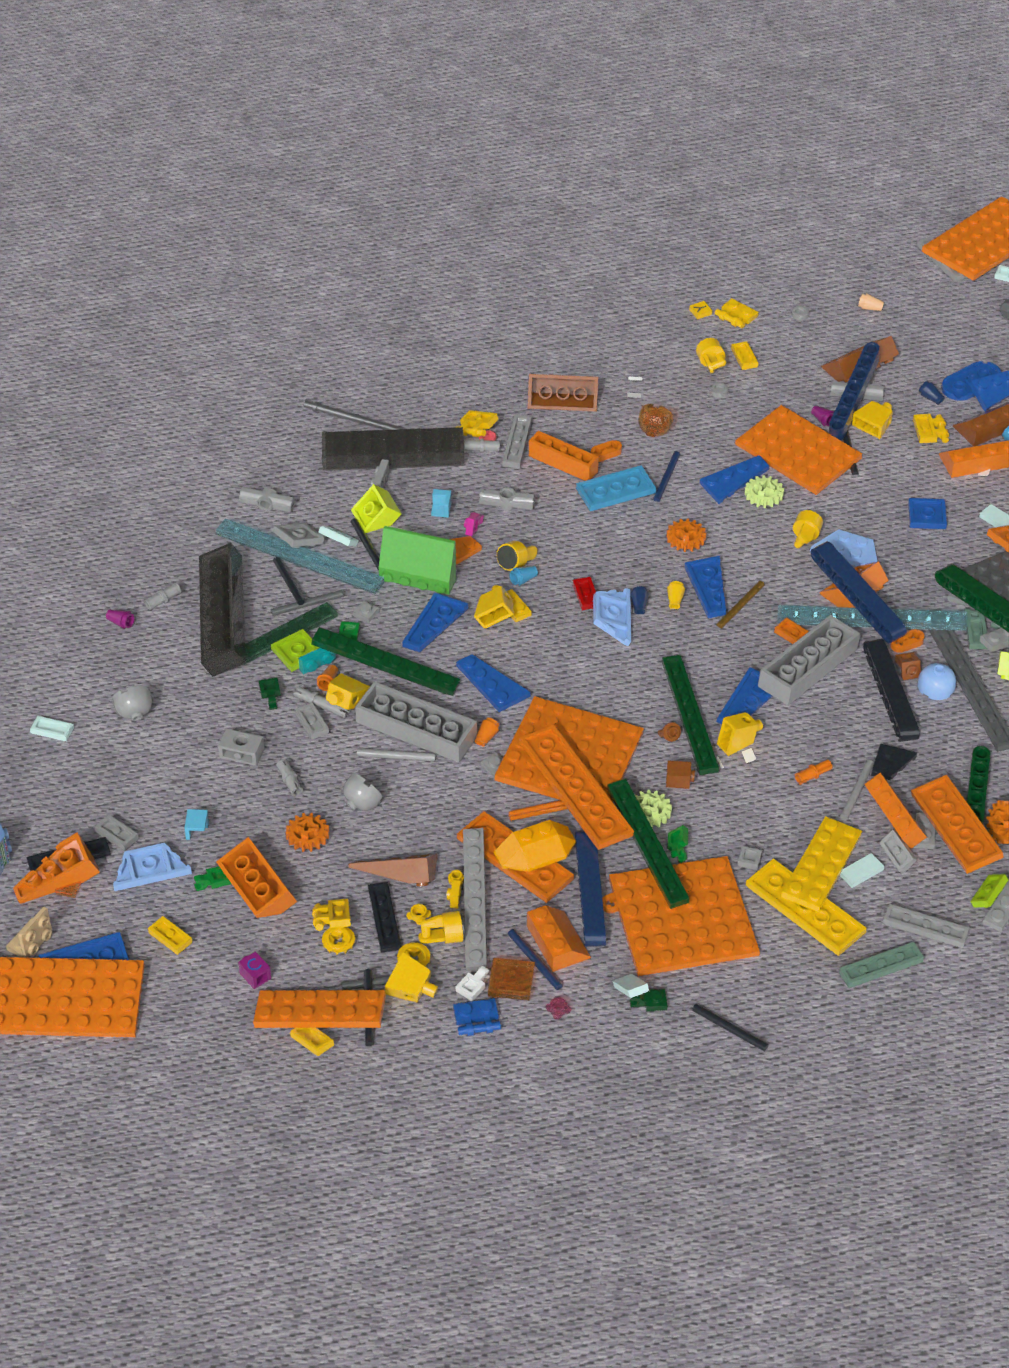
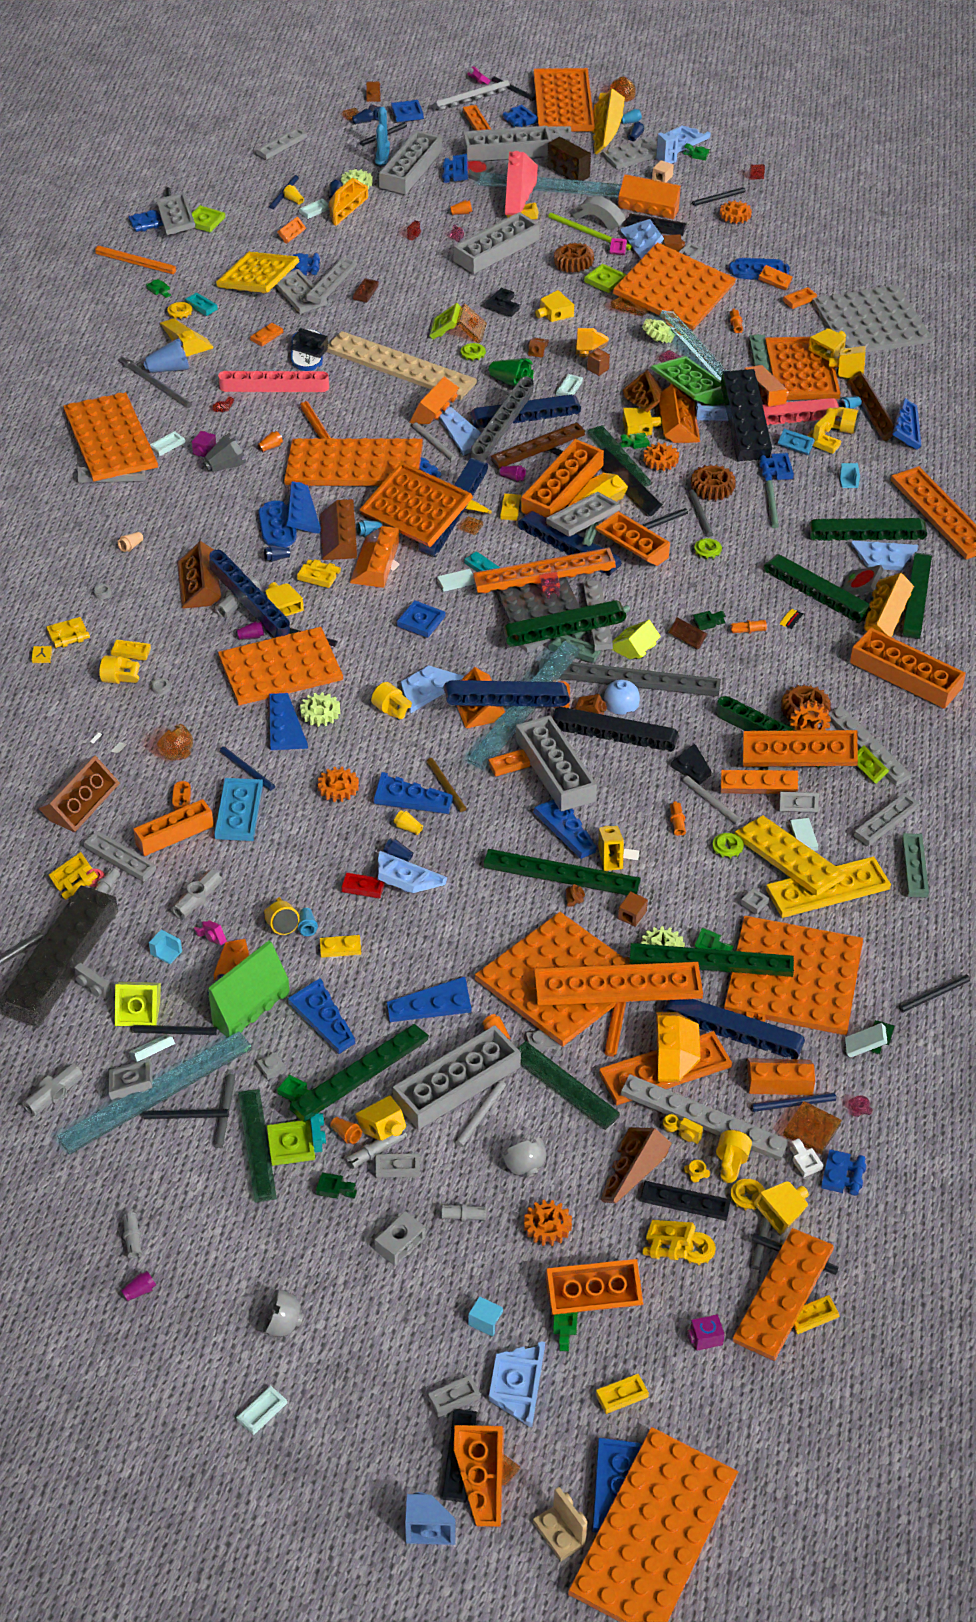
camera: 65 degrees left, 0 degrees up
(221, 610) = (200, 1182): clear smoke brick -> none
(455, 796) = (567, 1086): none -> clear green plate
(494, 607) = (342, 956): yellow torso -> none
(808, 812) = (734, 842): none -> lime gear

